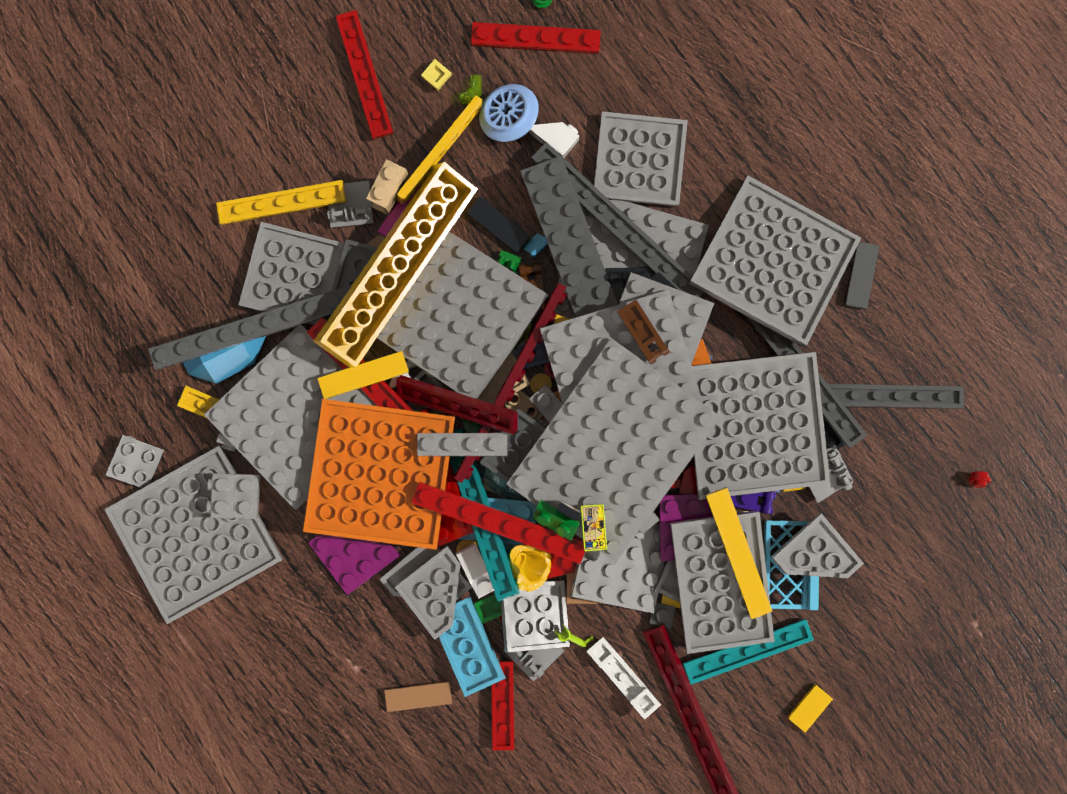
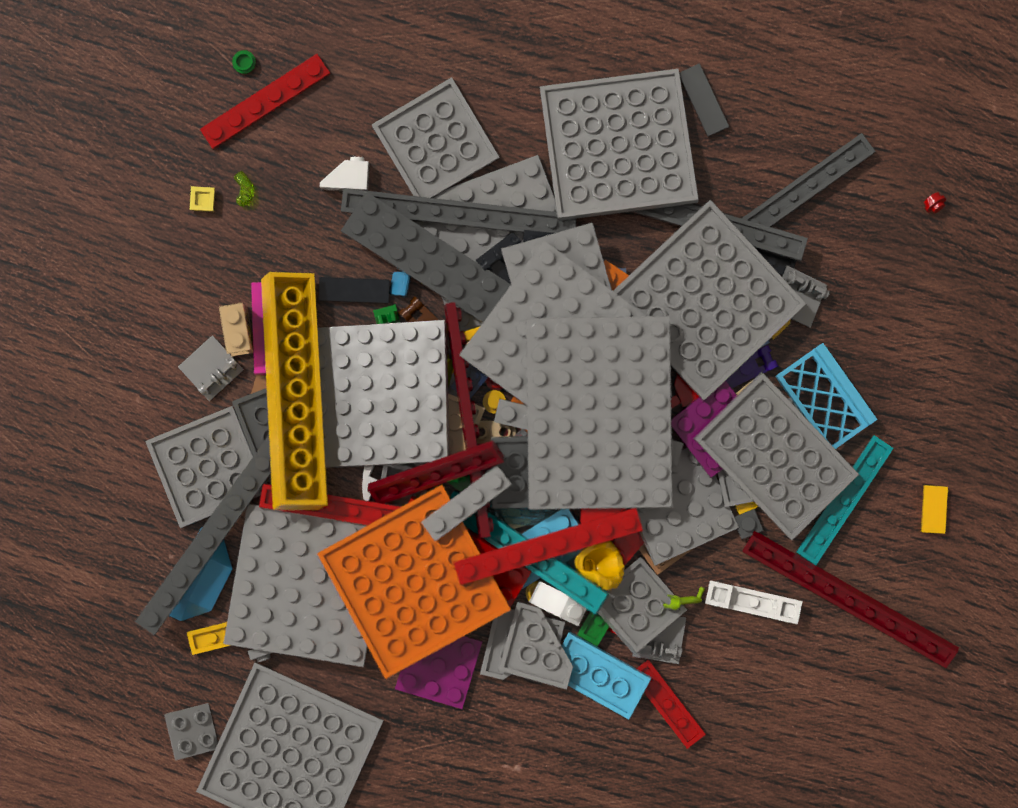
camera: 30 degrees left, 0 degrees up
(234, 496) = (301, 695): light grey plate -> none
(281, 202) = (150, 411): yellow tile -> none
(363, 375) = (337, 507): yellow tile -> none
(364, 75) = (139, 245): red plate -> none
(418, 696) = (589, 751): medium nougat tile -> none
(439, 150) = (255, 263): yellow tile -> none
(514, 130) = (307, 199): light blue piece -> none
(550, 517) = (594, 508): green plate -> none
(569, 510) = (599, 491): black tile -> none
(594, 527) = (630, 490): tile -> none
(642, 331) = (548, 292): reddish brown plate -> none
(738, 552) = (770, 421): yellow tile -> none
(817, 552) = (838, 370): light grey plate -> none

